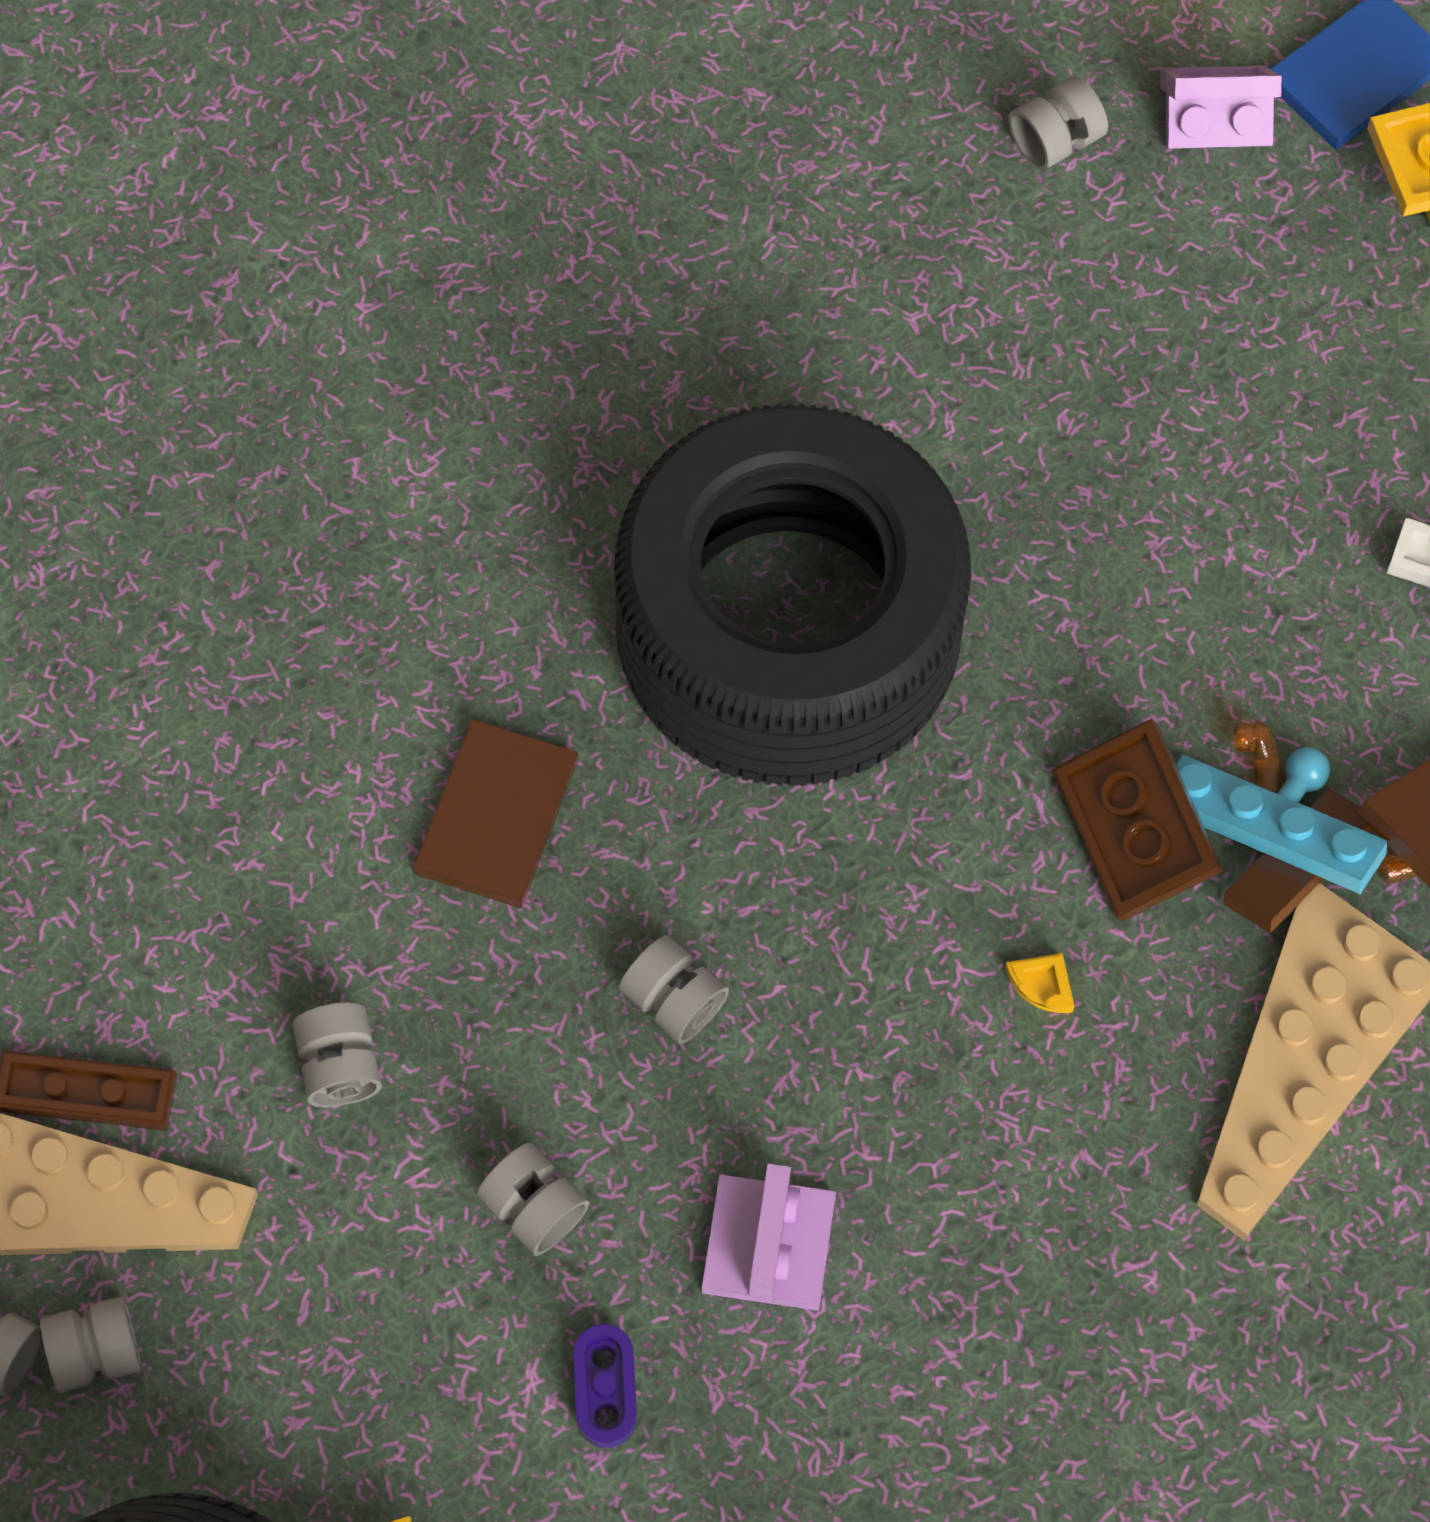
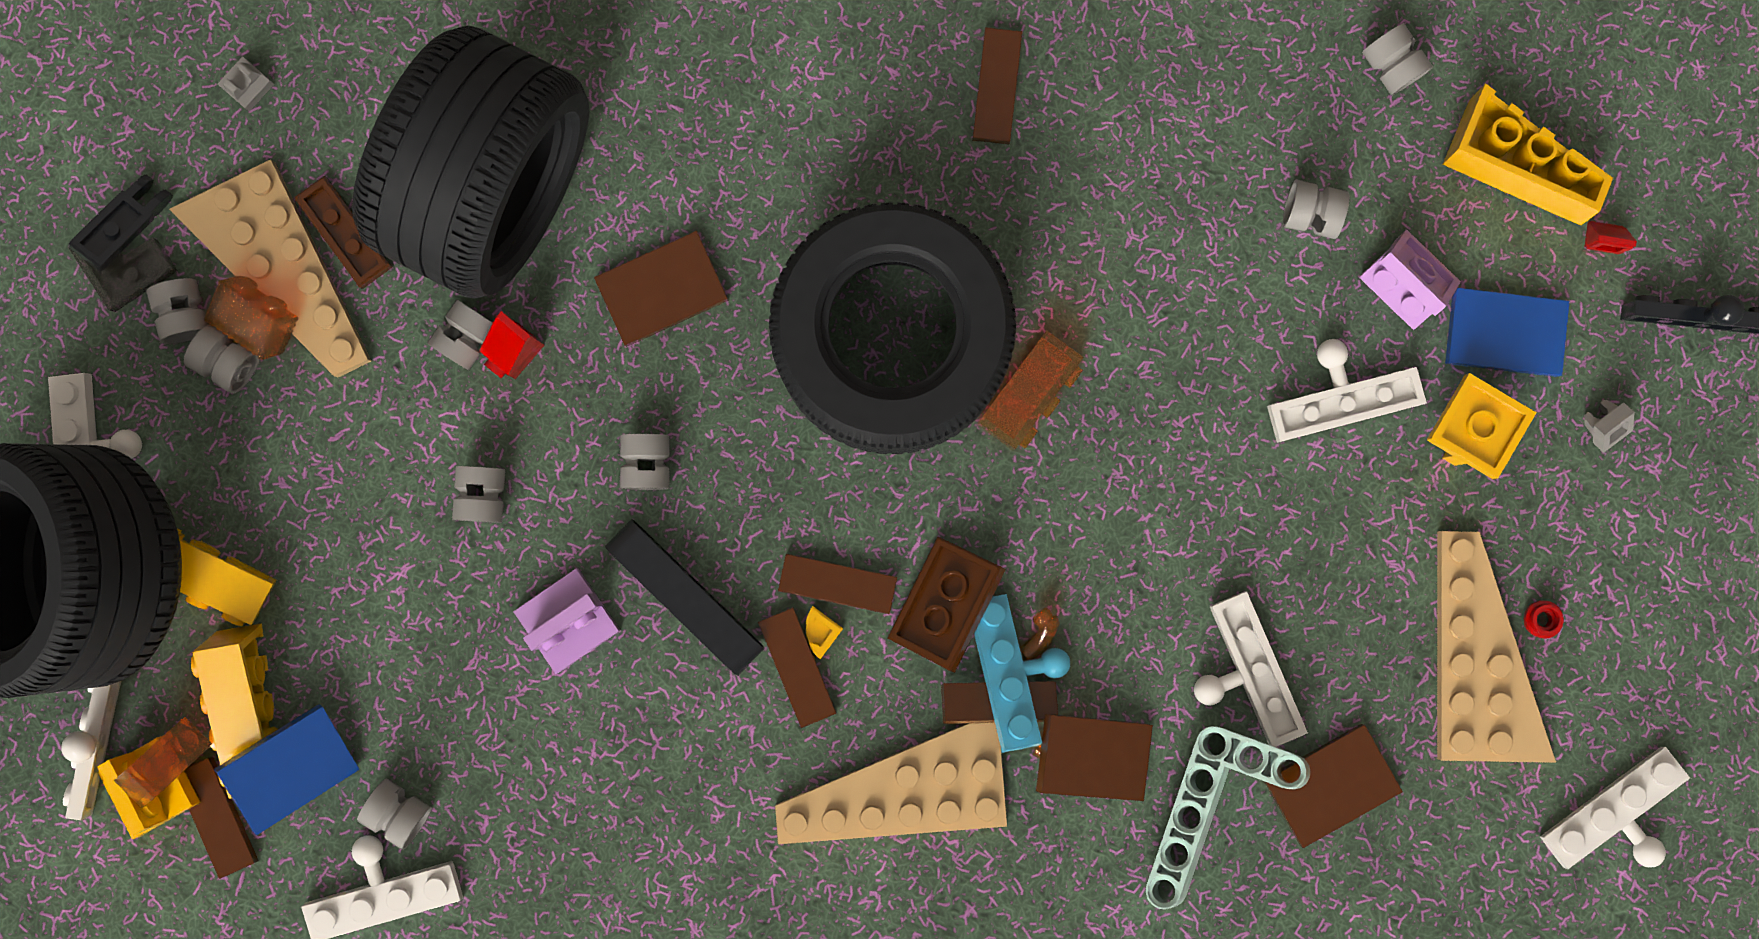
camera: 50 degrees right, 20 degrees up
(78, 1263) = (251, 317): none -> clear orange brick
(193, 819) = (469, 161): none -> black tyre
(402, 1010) = (509, 347): none -> red slope
(605, 1387) = (425, 610): dark purple plate -> none
(624, 305) = (997, 86): none -> reddish brown tile
(866, 1084) = (684, 597): none -> black beam
(1000, 584) = (1032, 392): none -> clear orange brick
(1005, 918) = (837, 584): none -> reddish brown tile
(1060, 1041) = (797, 667): none -> reddish brown tile
(1287, 266) = (1347, 401): none -> white plate

